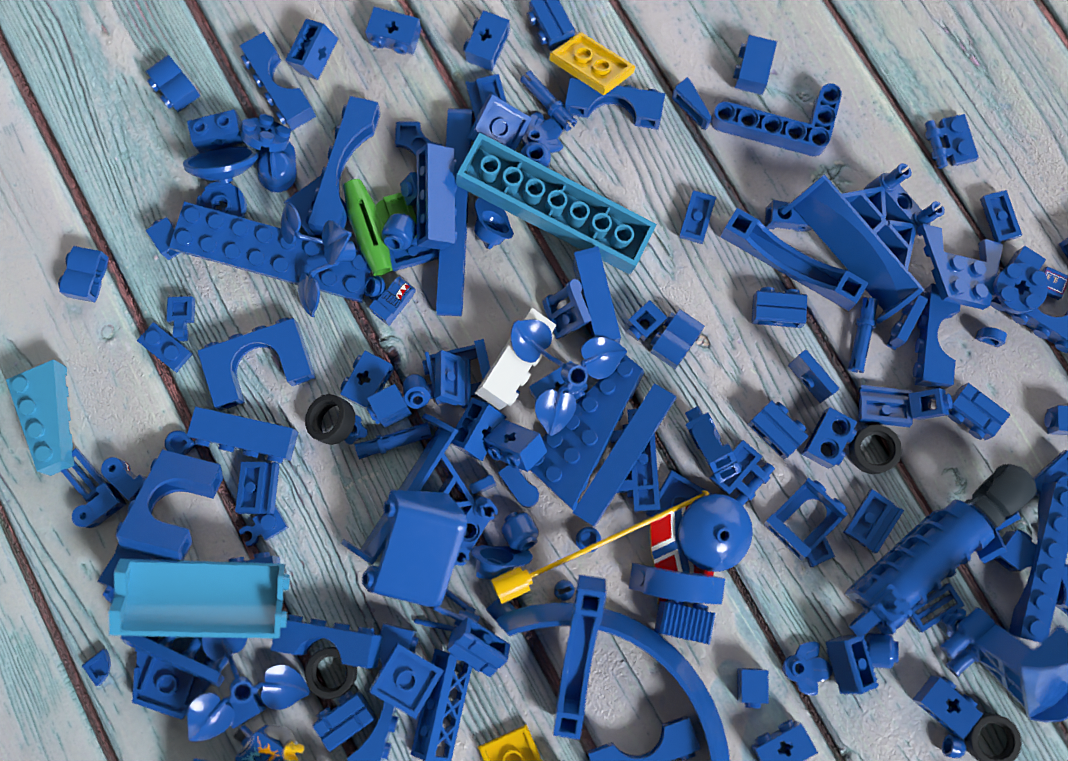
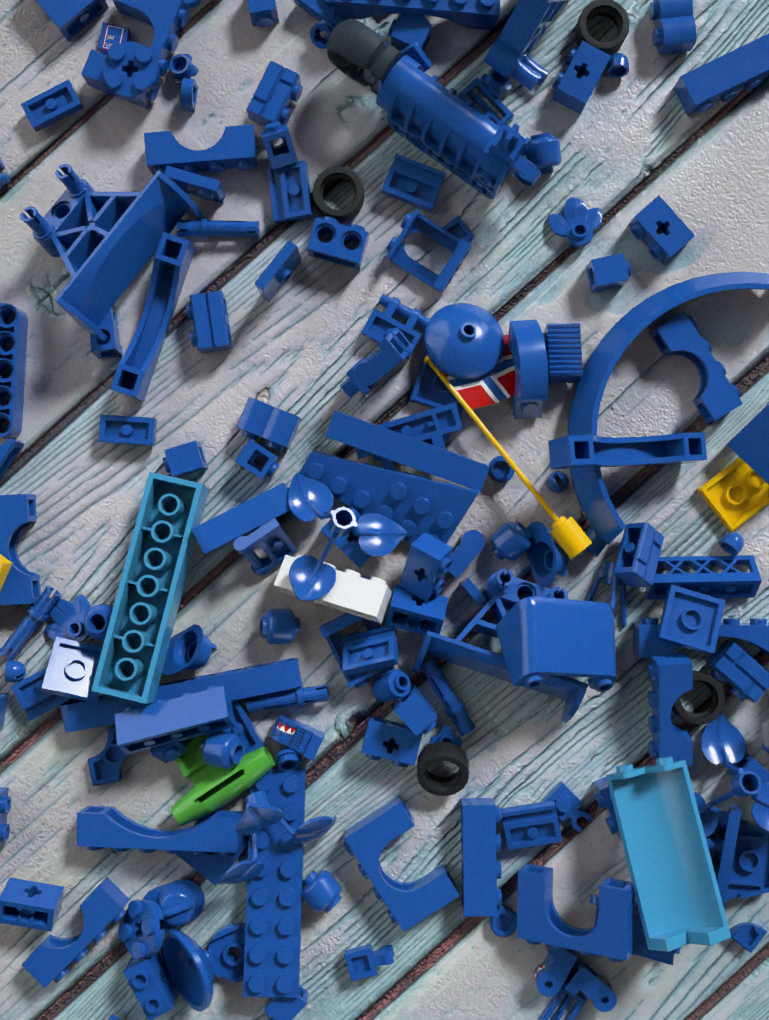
camera: 105 degrees left, 10 degrees up
(164, 347) = (405, 968): blue plate -> none
(253, 289) = (321, 891): none -> blue head
(428, 299) = (293, 697): none -> blue pin
(467, 745) = (732, 543): none -> blue hinge
(493, 307) = (279, 626): none -> blue head
(510, 79) = (14, 671): none -> blue hinge
(661, 259) = (184, 459): none -> blue brick
(779, 429) = (340, 297): blue brick -> none
(851, 664) = (565, 178): blue brick -> none
(959, 277) = (134, 135): blue wing -> none
(1017, 336) = (182, 67): none -> blue plate
(1032, 463) = (315, 31): none -> blue bush

